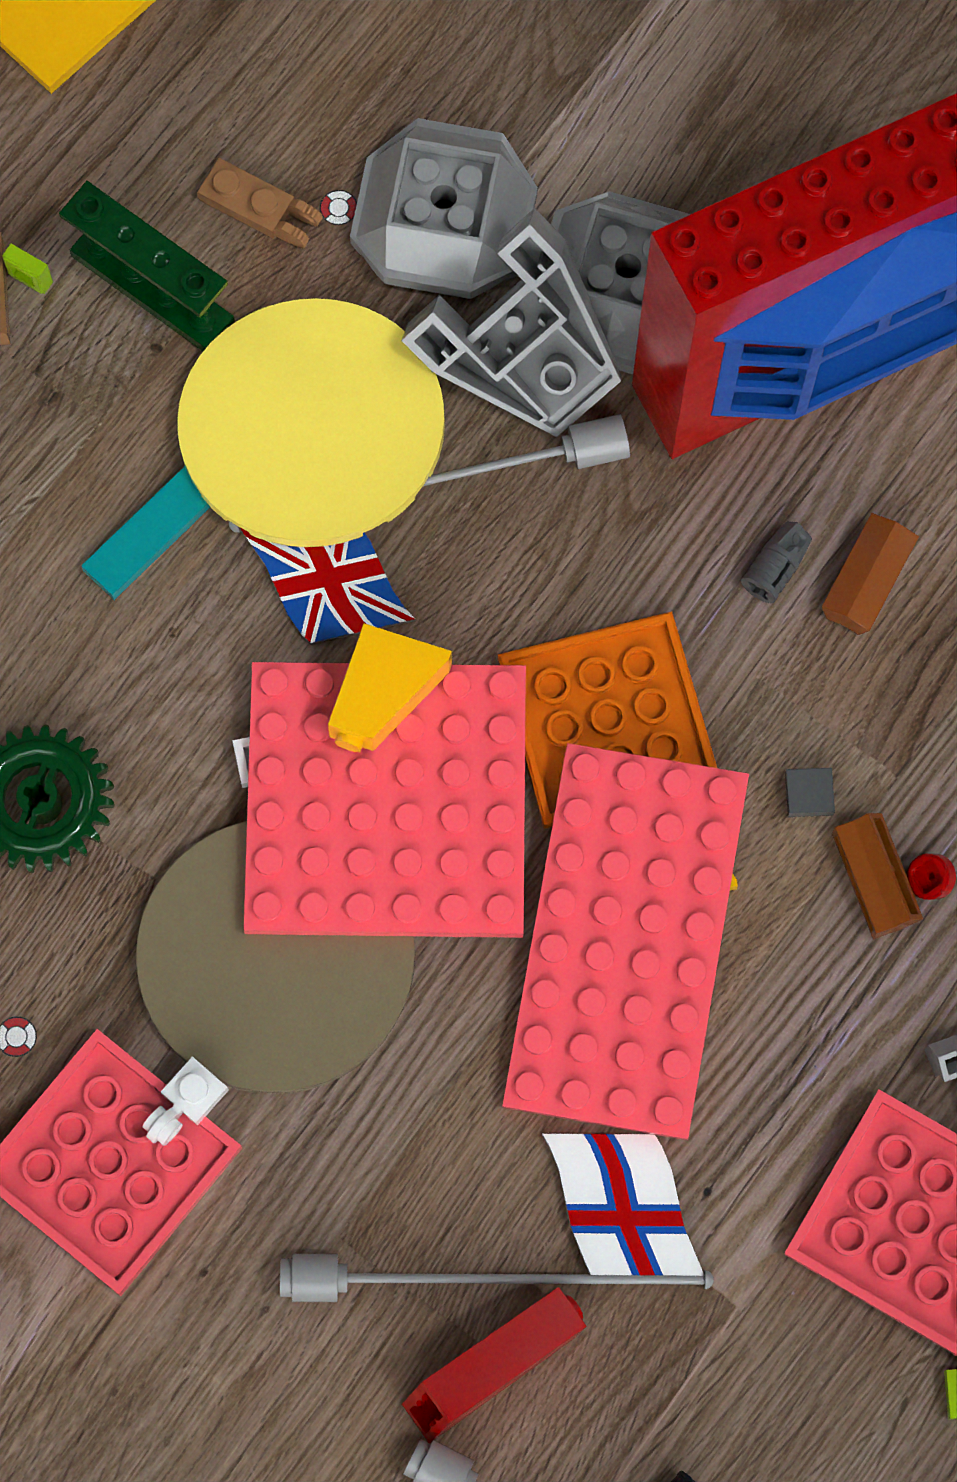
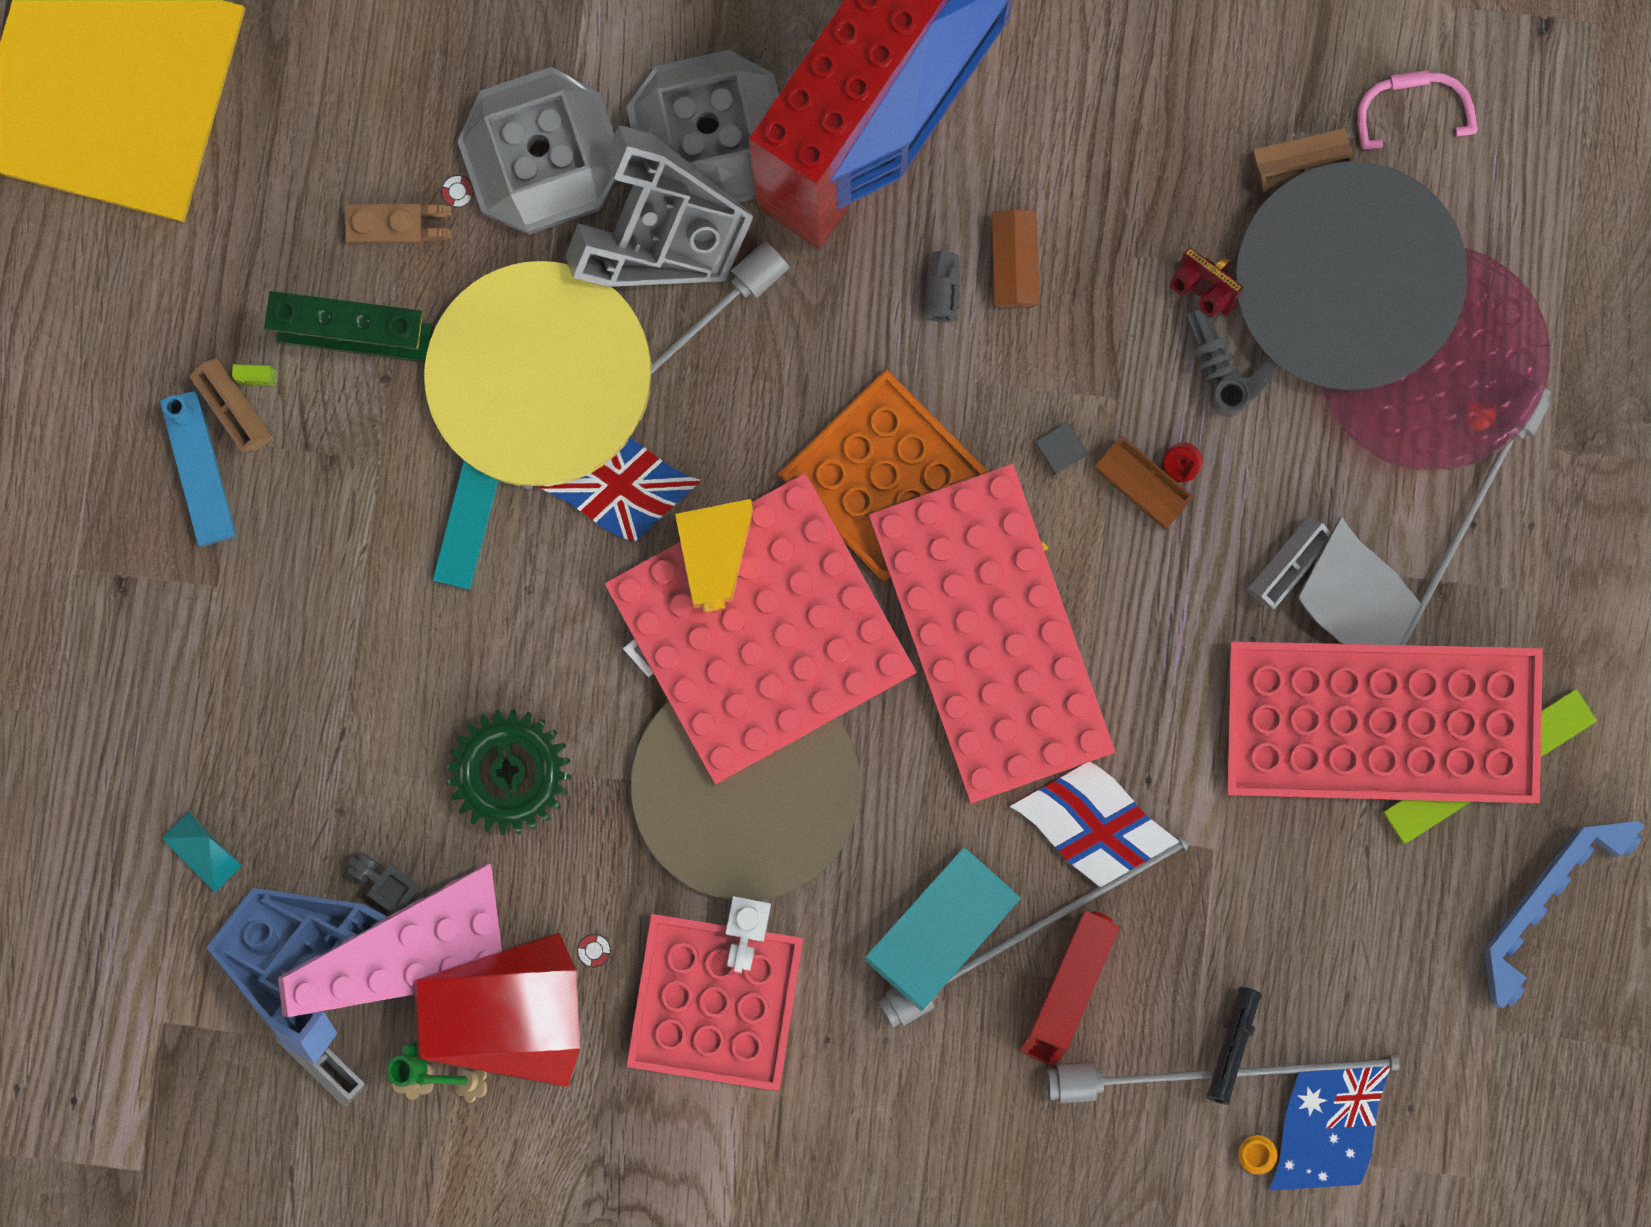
camera: 25 degrees left, 10 degrees up
(393, 1220) = (942, 929): none -> teal tile

